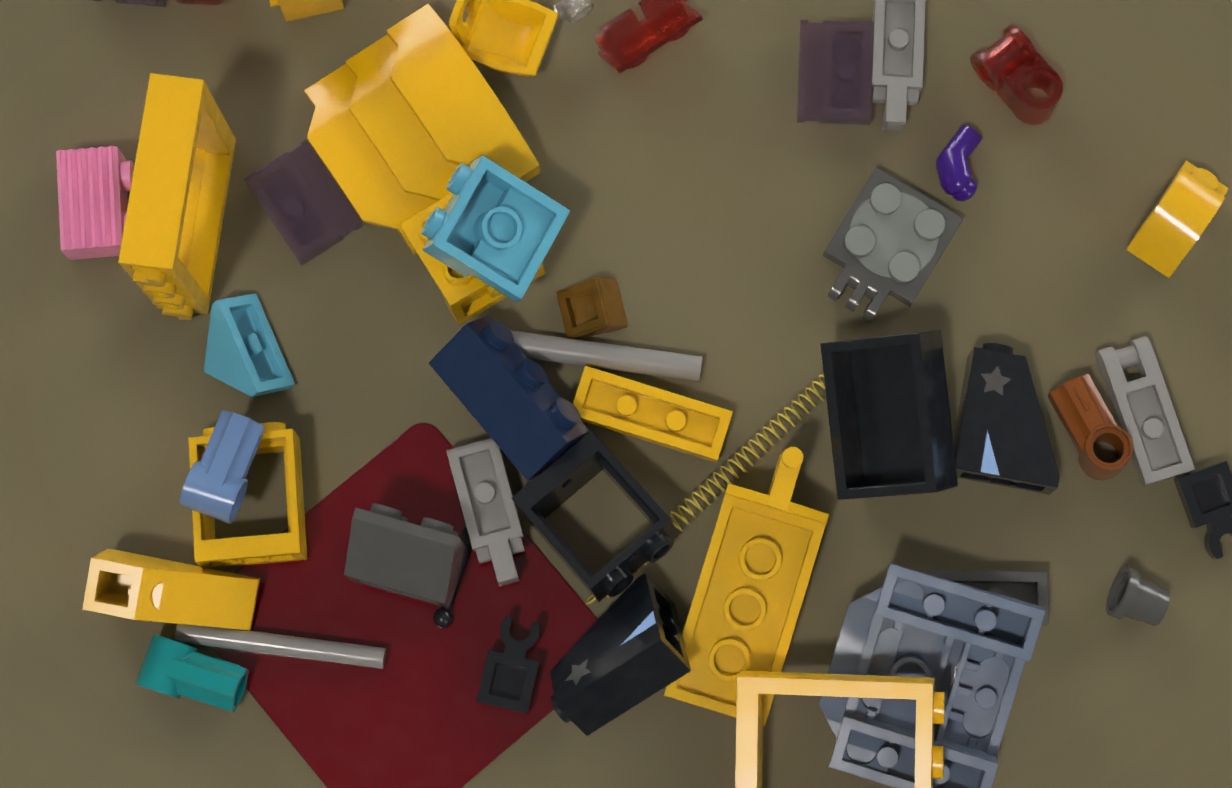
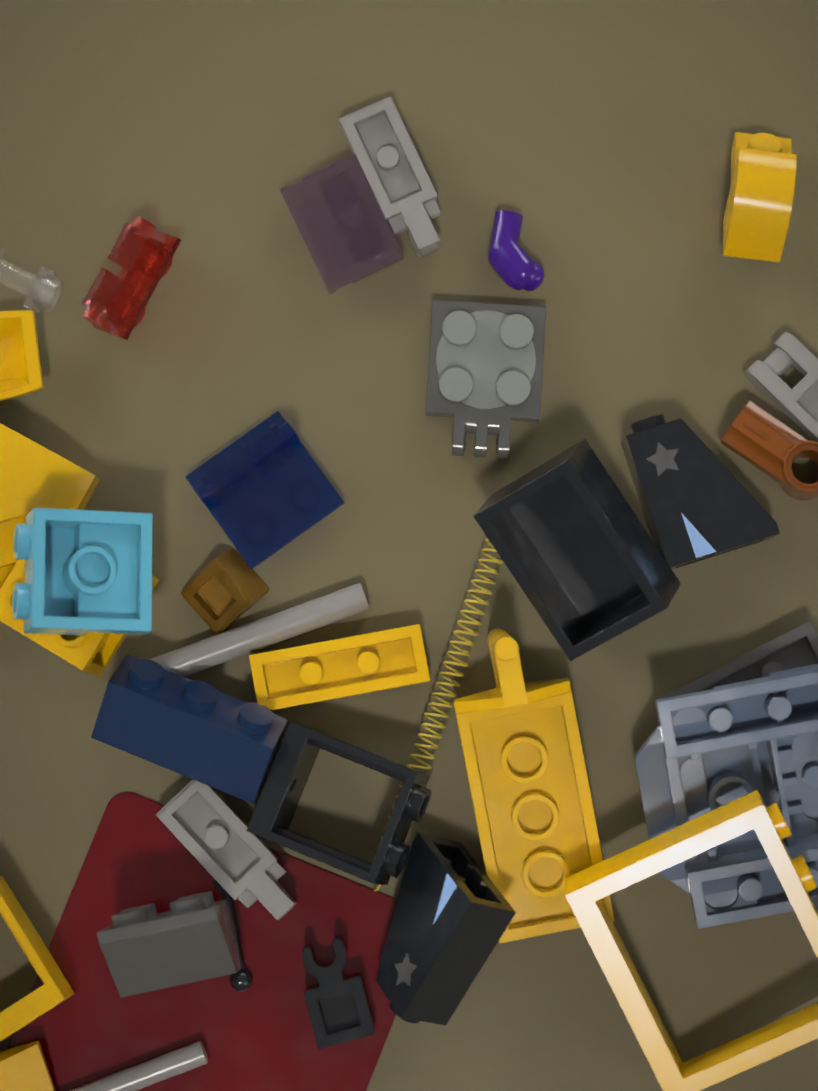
camera: 25 degrees left, 5 degrees up
(665, 246) = (265, 490): none -> clear blue hinge
(1012, 68) = (523, 130): clear red piece -> none

